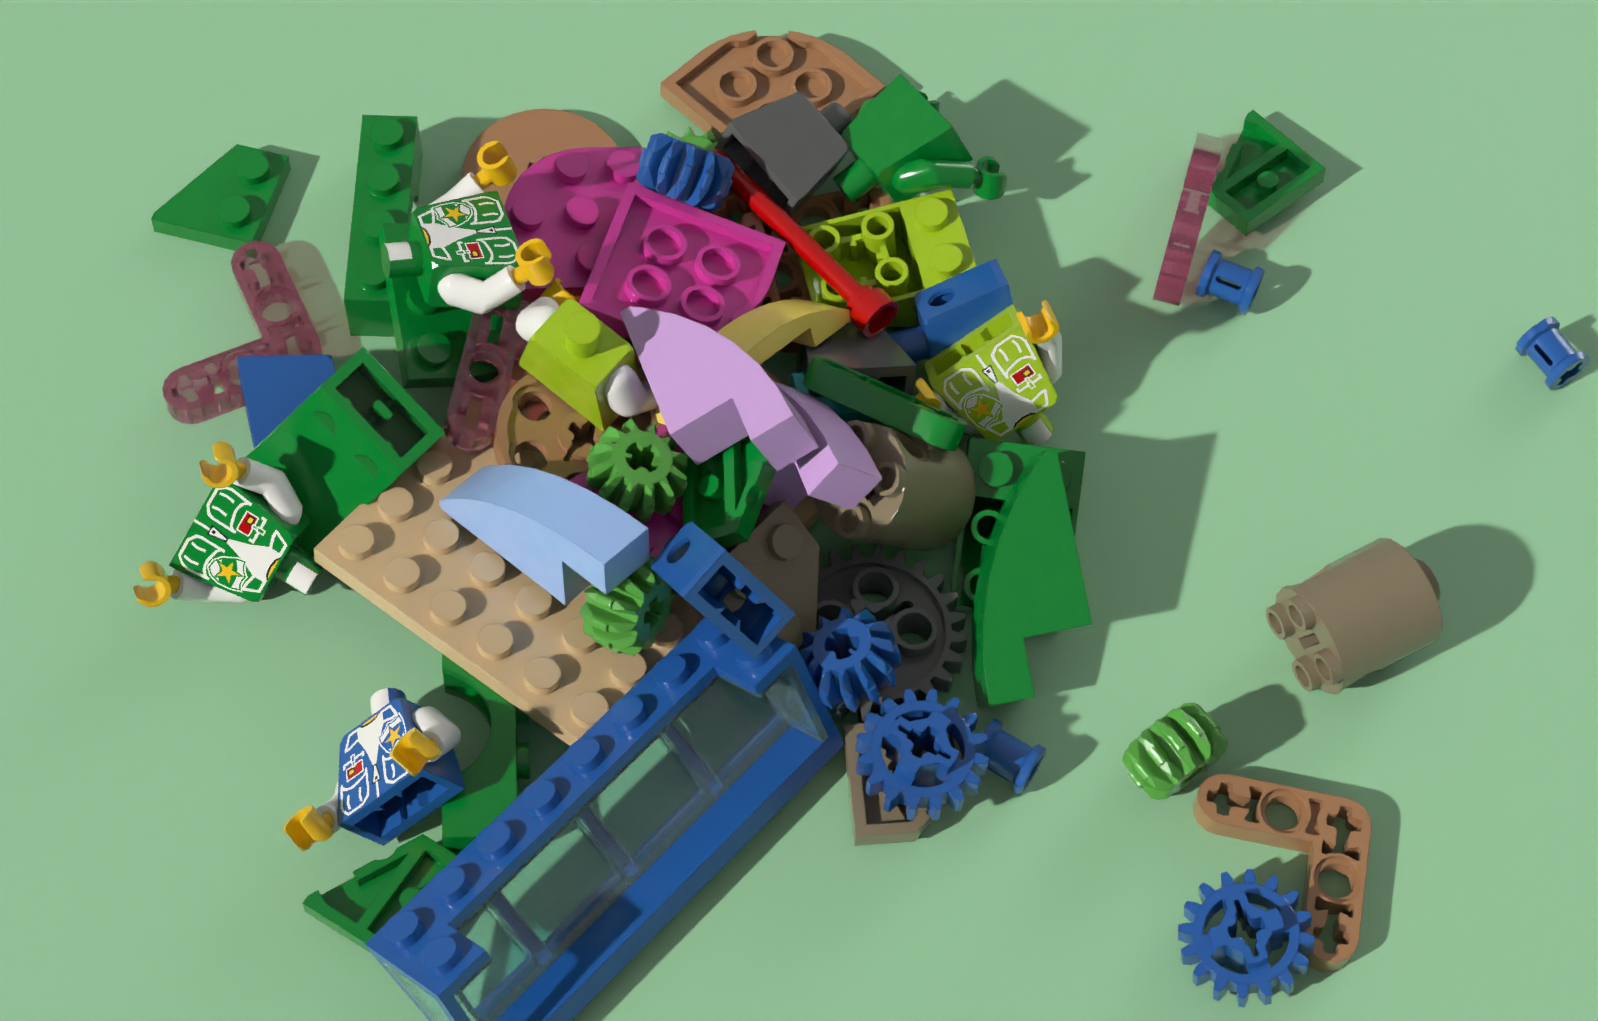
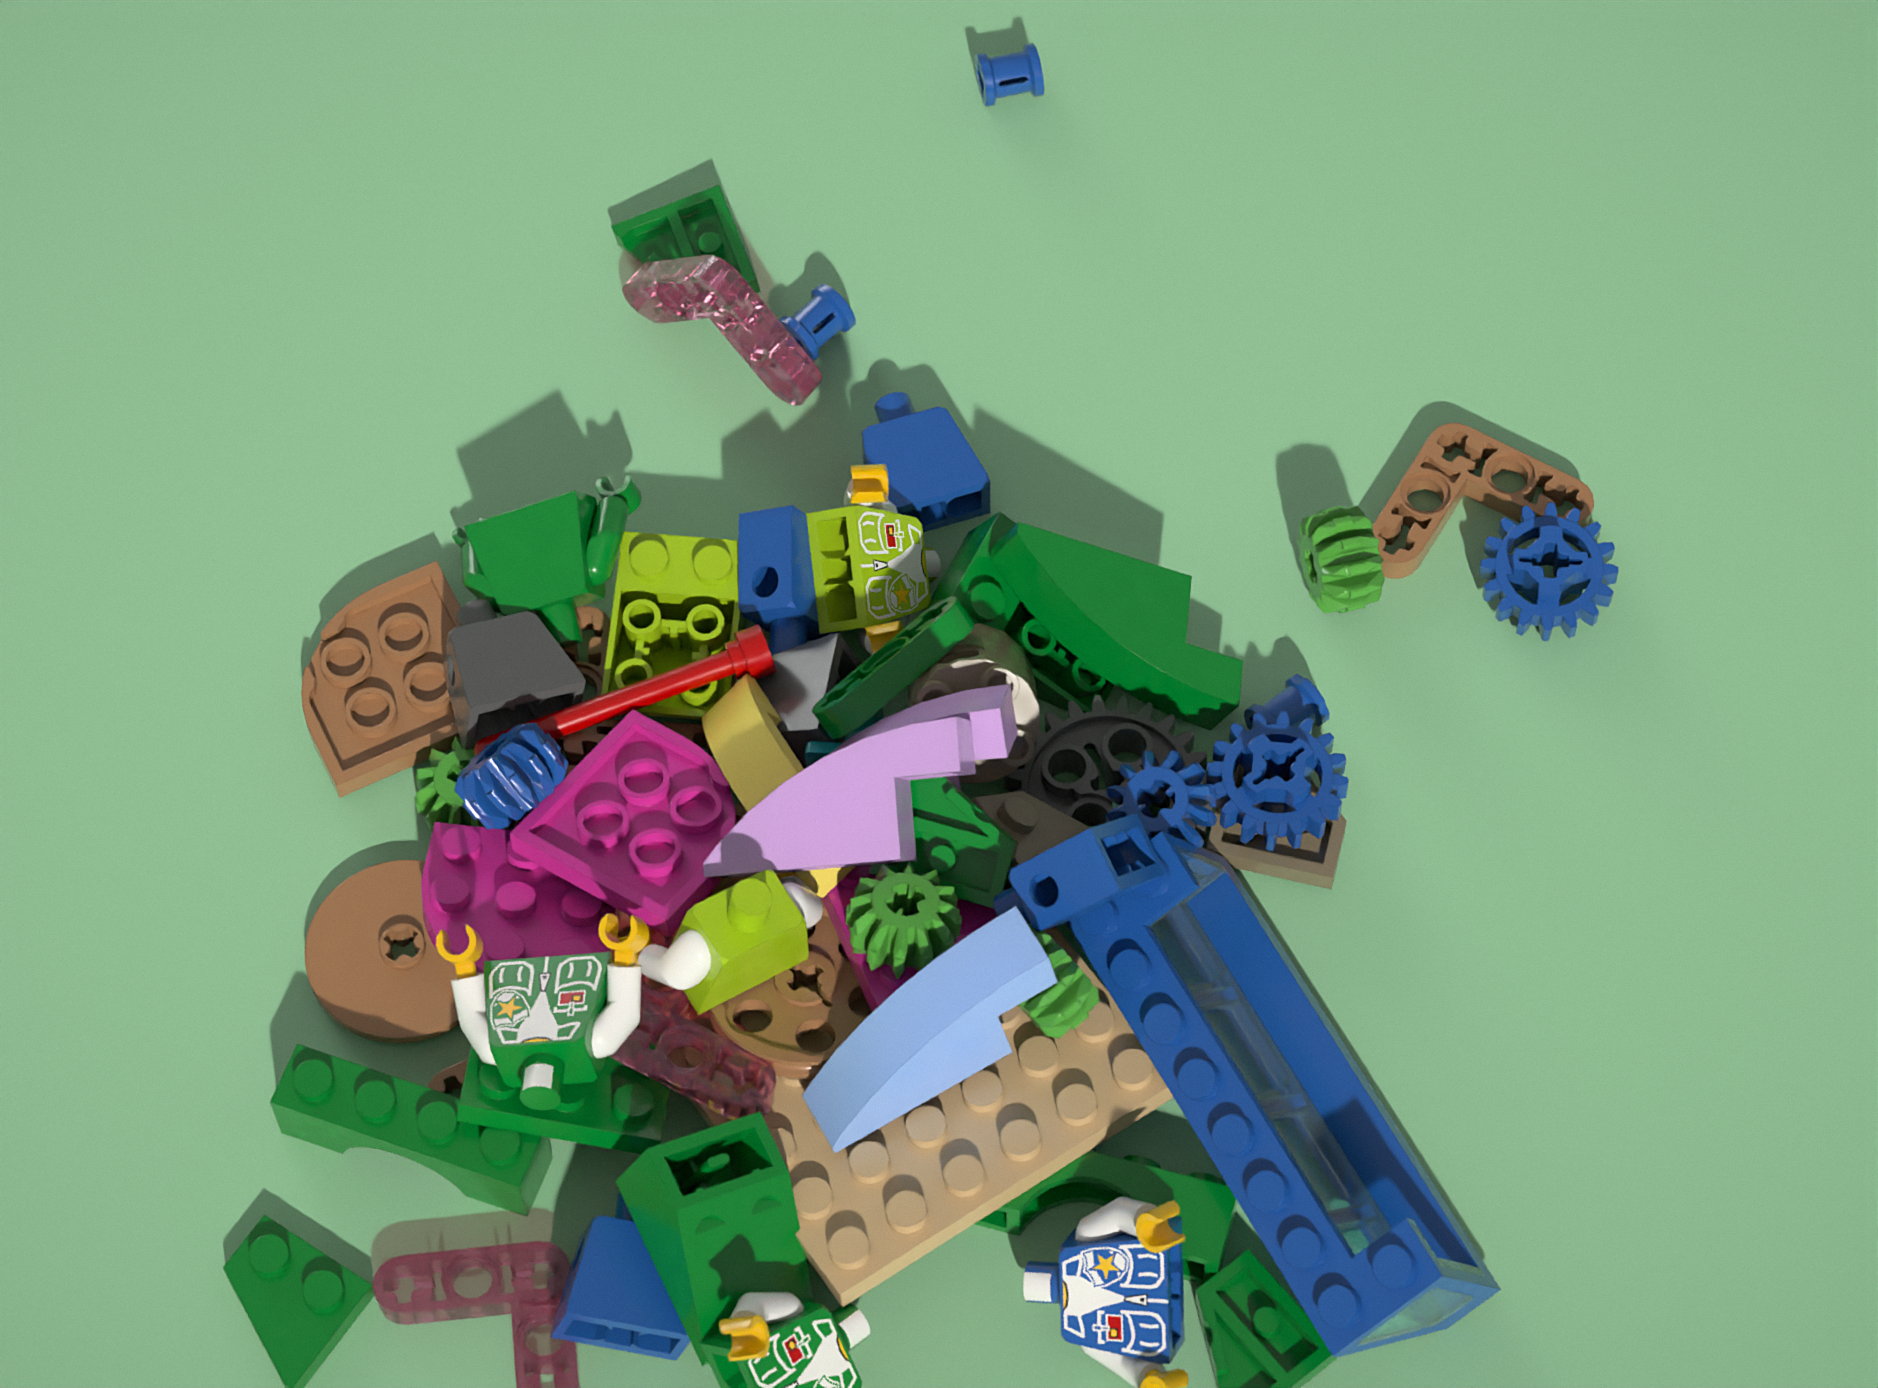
camera: 65 degrees left, 0 degrees up
(1122, 397) = (927, 463): none -> blue torso
(1357, 615) = (1253, 348): dark tan cylinder -> none

